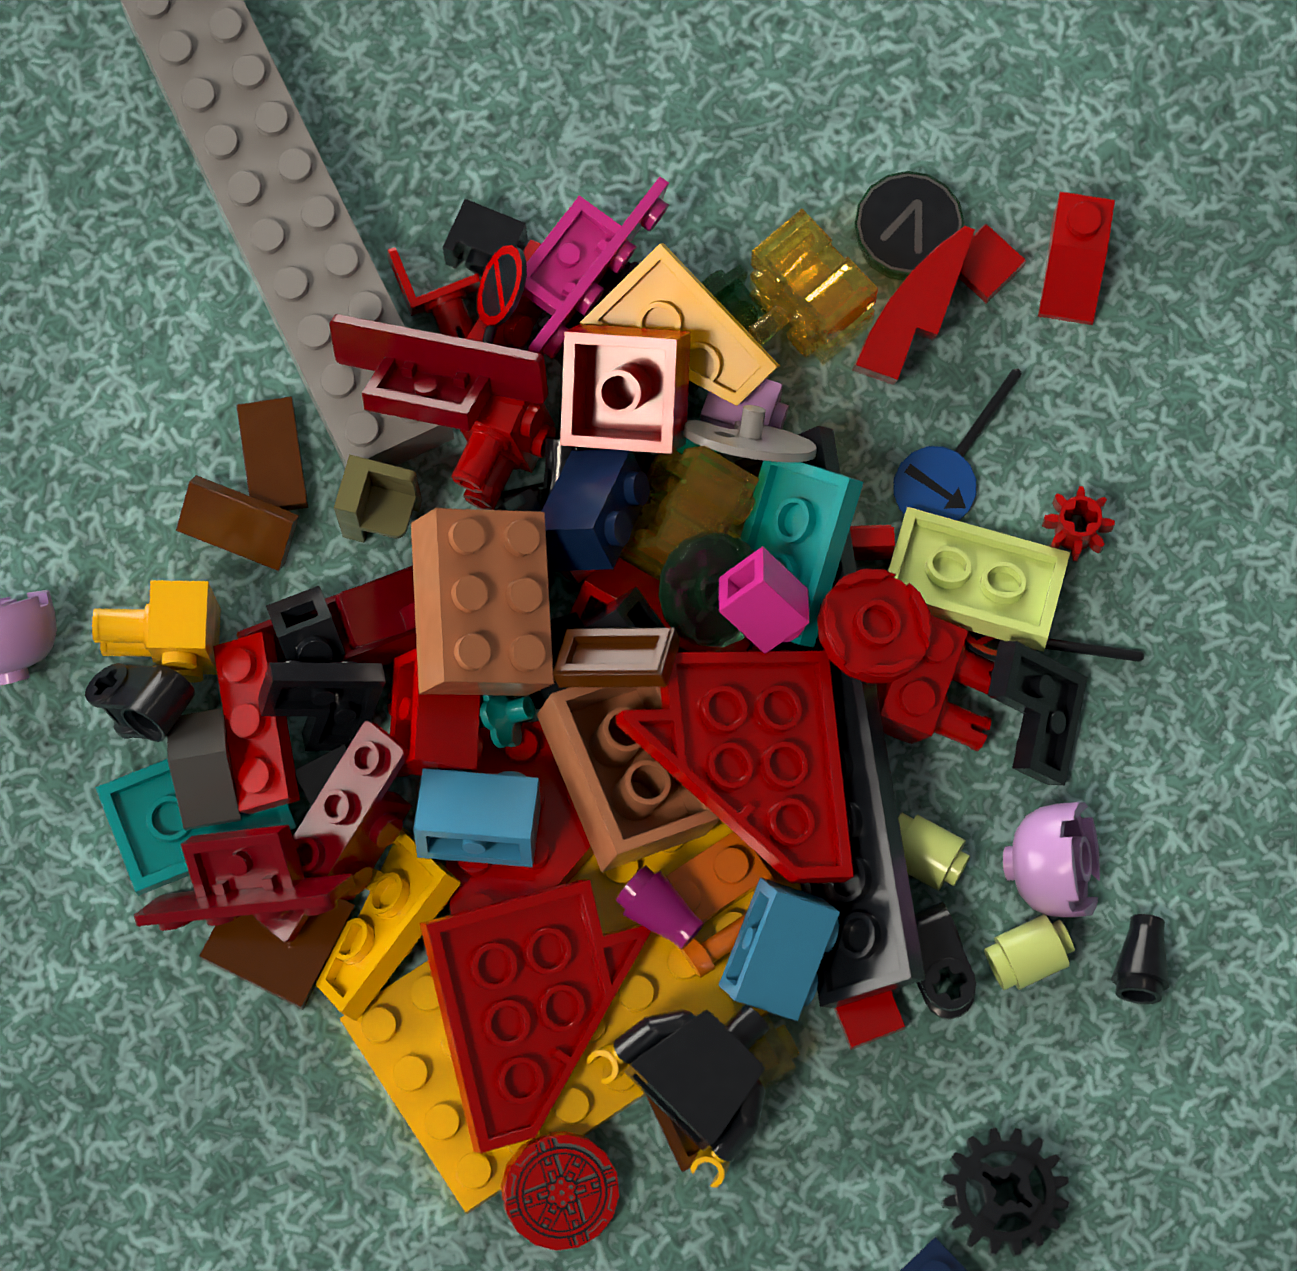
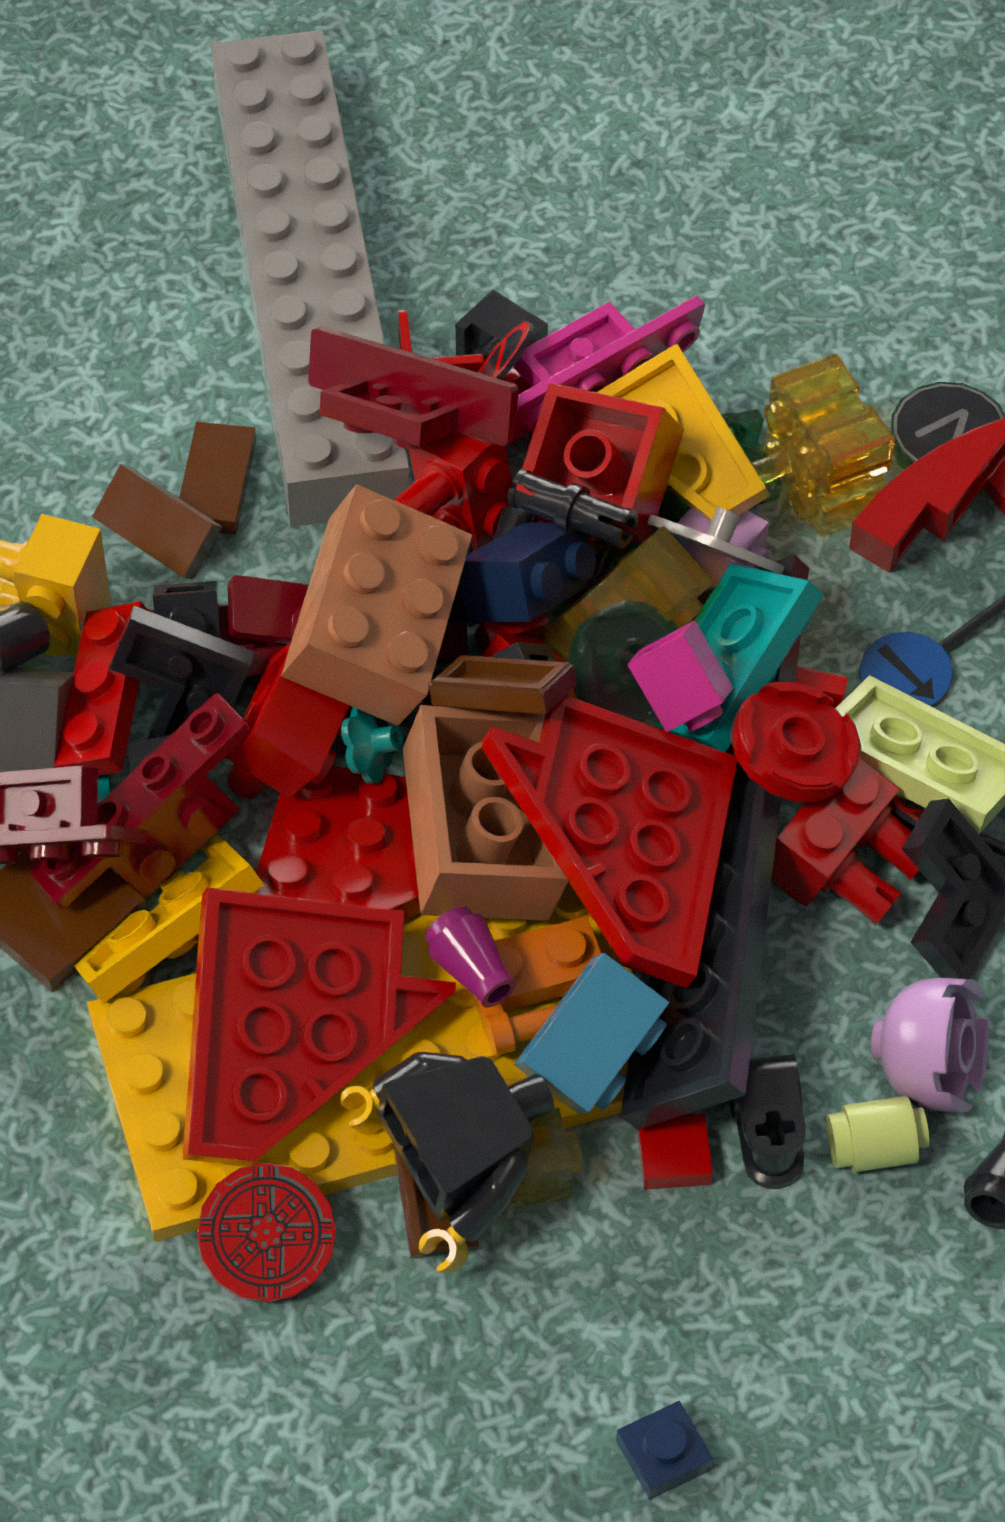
camera: 15 degrees right, 20 degrees down
(376, 499) = (295, 513): olive panel -> none
(477, 817) = (303, 822): dark azure brick -> none
(620, 452) = (573, 508): none -> black pin
(931, 851) = (794, 1005): yellowish green brick -> none
(1029, 1206) = (772, 1401): black gear -> none

